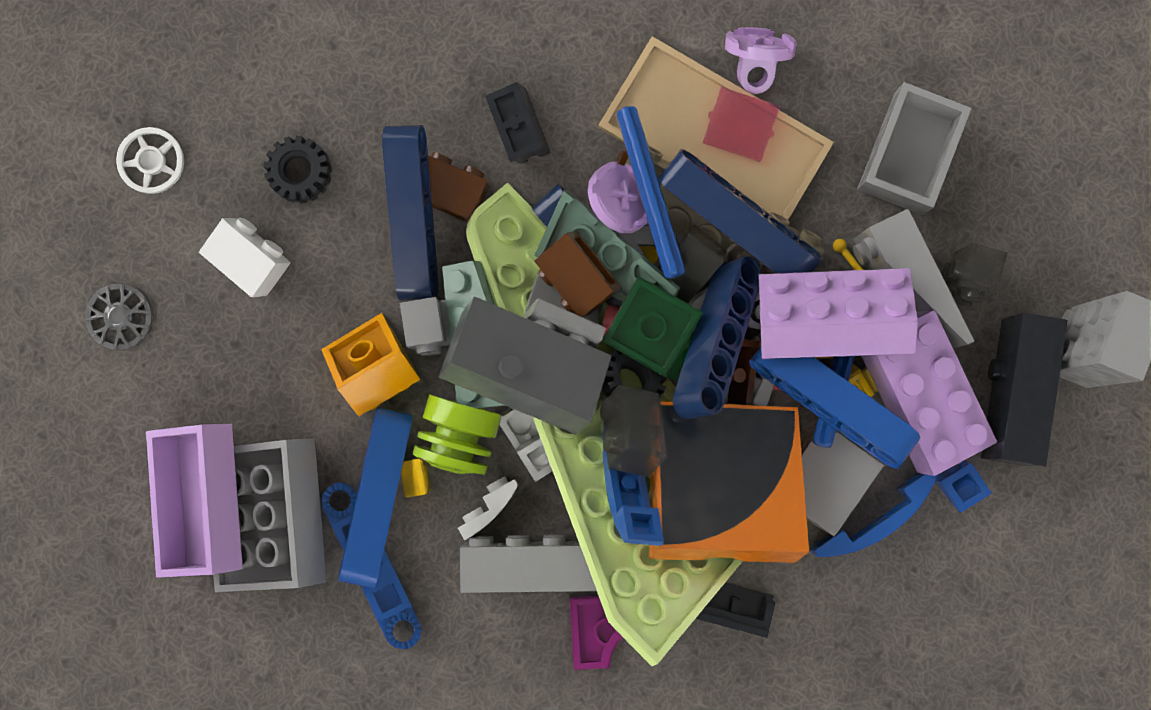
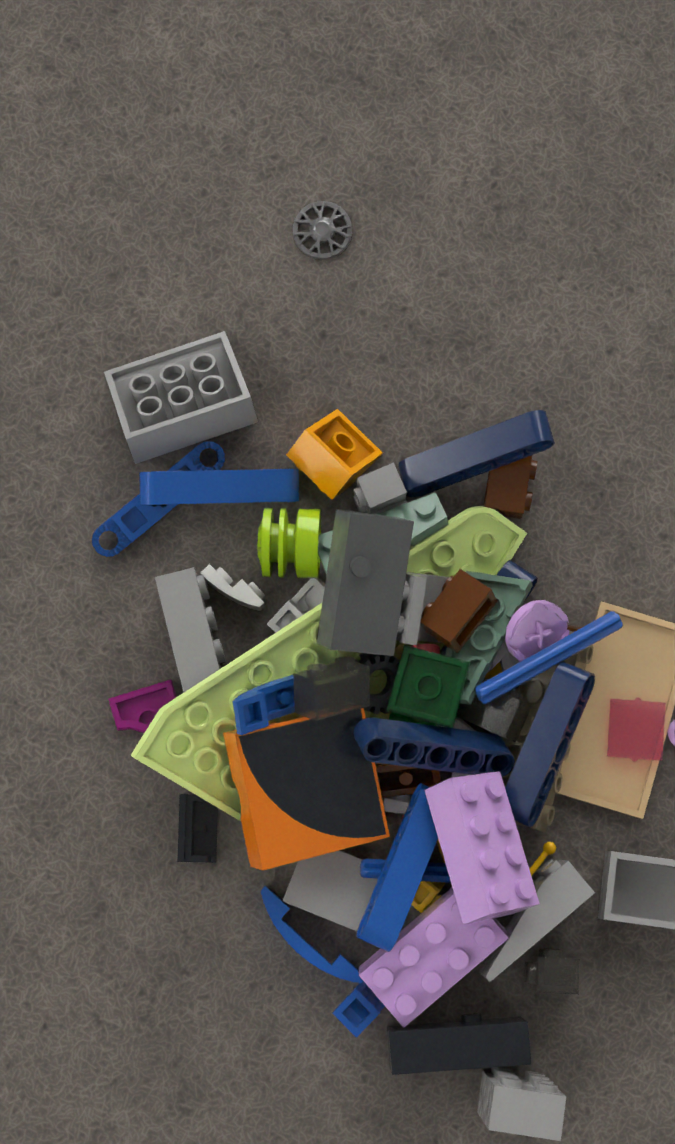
camera: 70 degrees right, 5 degrees down
(150, 160) = (465, 221): white wheel -> none
(194, 500) = (180, 333): lavender piece -> none
(245, 256) = (401, 323): white brick -> none
(283, 155) = (495, 330): black tyre -> none
(415, 478) = (244, 518): yellow slope -> none
(517, 123) = (582, 529): black hinge -> none

